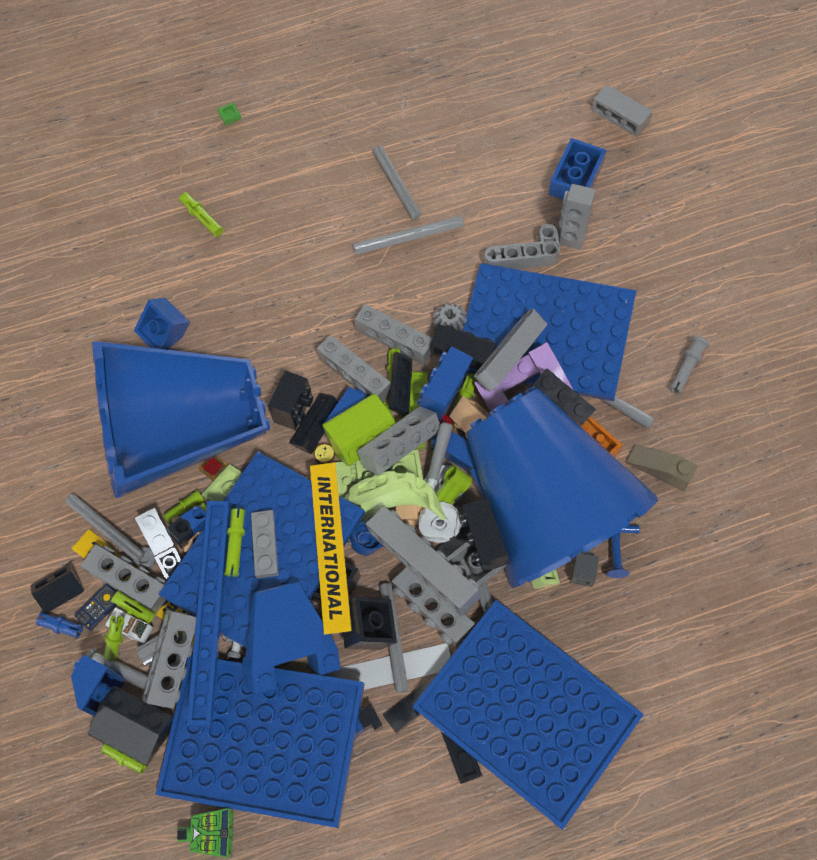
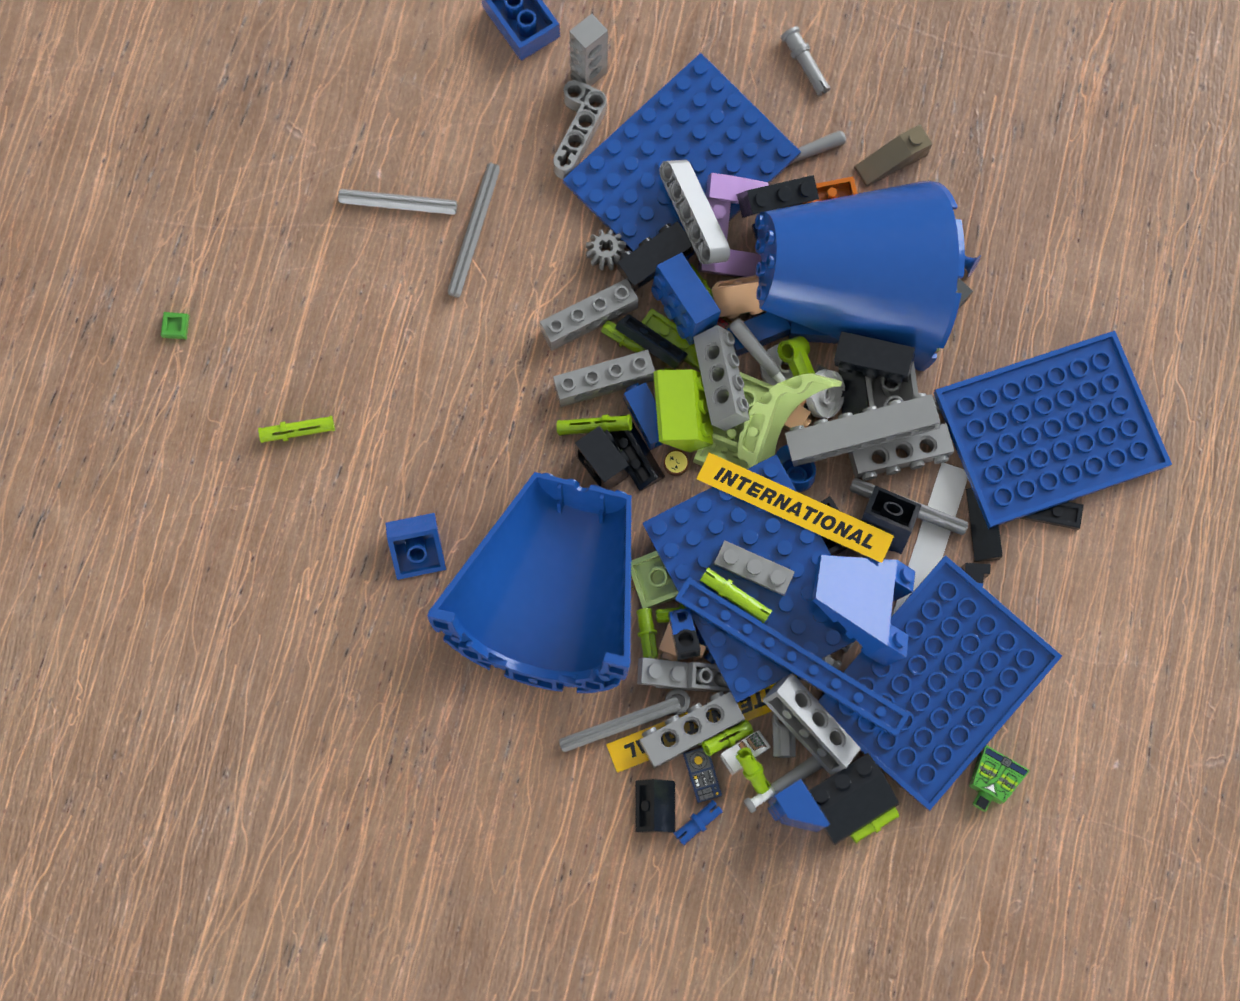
camera: 65 degrees left, 10 degrees up
(318, 387) = (586, 425): none -> lime pin

